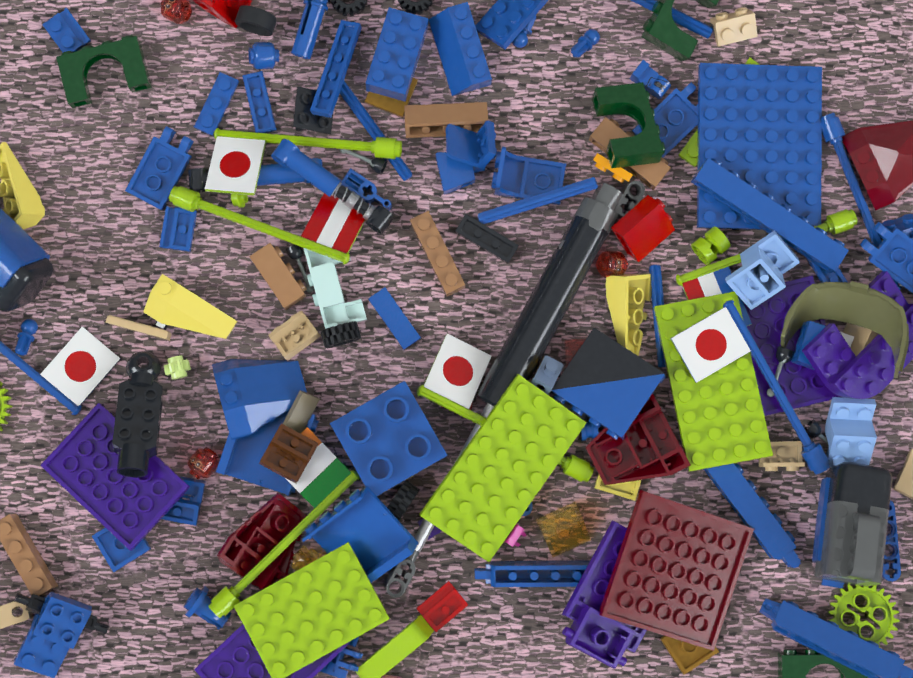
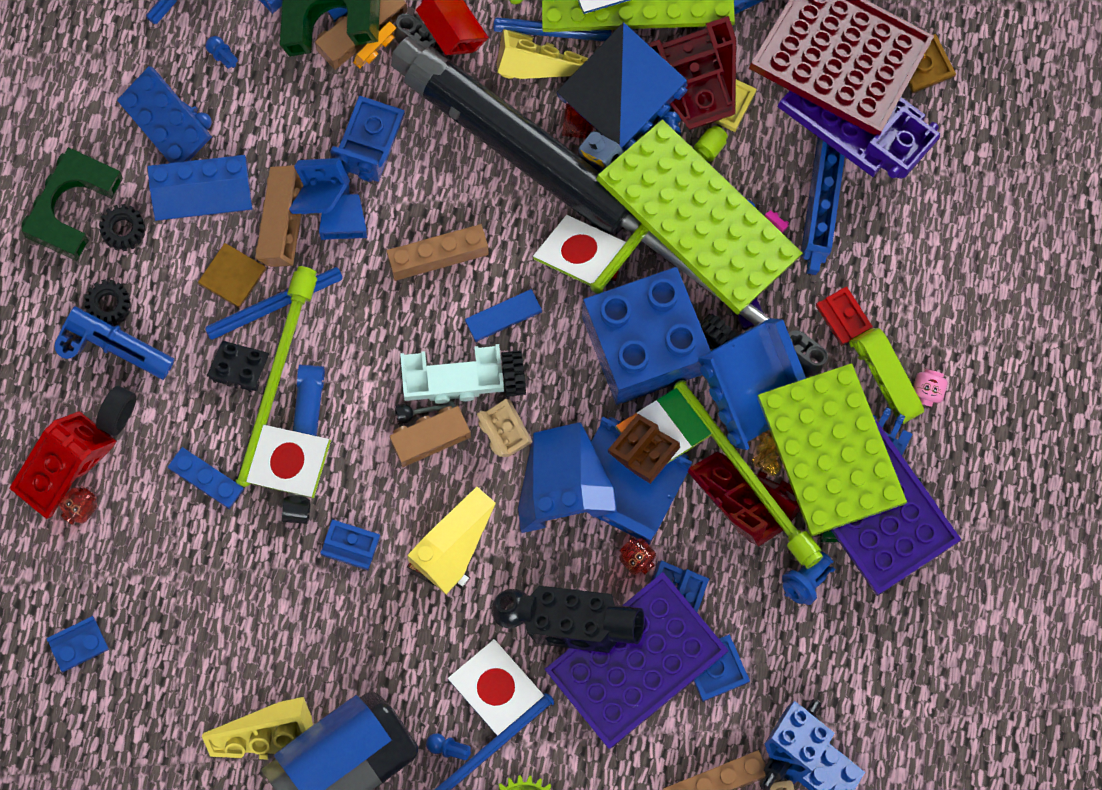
camera: 80 degrees left, 10 degrees down
(75, 67) = (120, 572): dark green arch -> none
(138, 327) = (462, 608): tan tile -> none
(160, 169) = (273, 556): blue tile -> none
(177, 367) = (518, 569): yellowish green gear -> none
(239, 200) = (329, 467): lime plate -> none
(259, 102) = (214, 428): blue tile -> none
(263, 55) = (159, 412): blue head -> none
(291, 157) = (293, 390): piece -> none
(301, 411) = (596, 433): dark tan tile -> none
(328, 232) = (387, 365): flag -> none
(336, 68) = (194, 329): blue plate -> none
(358, 184) = (338, 330): blue piece -> none
(376, 163) = (317, 304): hinge -> none
(397, 54) = (191, 257): blue brick -> none
(486, 238) = (429, 197): black plate -> none
(538, 200) = (397, 131): blue axle -> none
(563, 529) = (775, 171): clear yellow slope -> none
(611, 263) = (485, 66): clear red head -> none

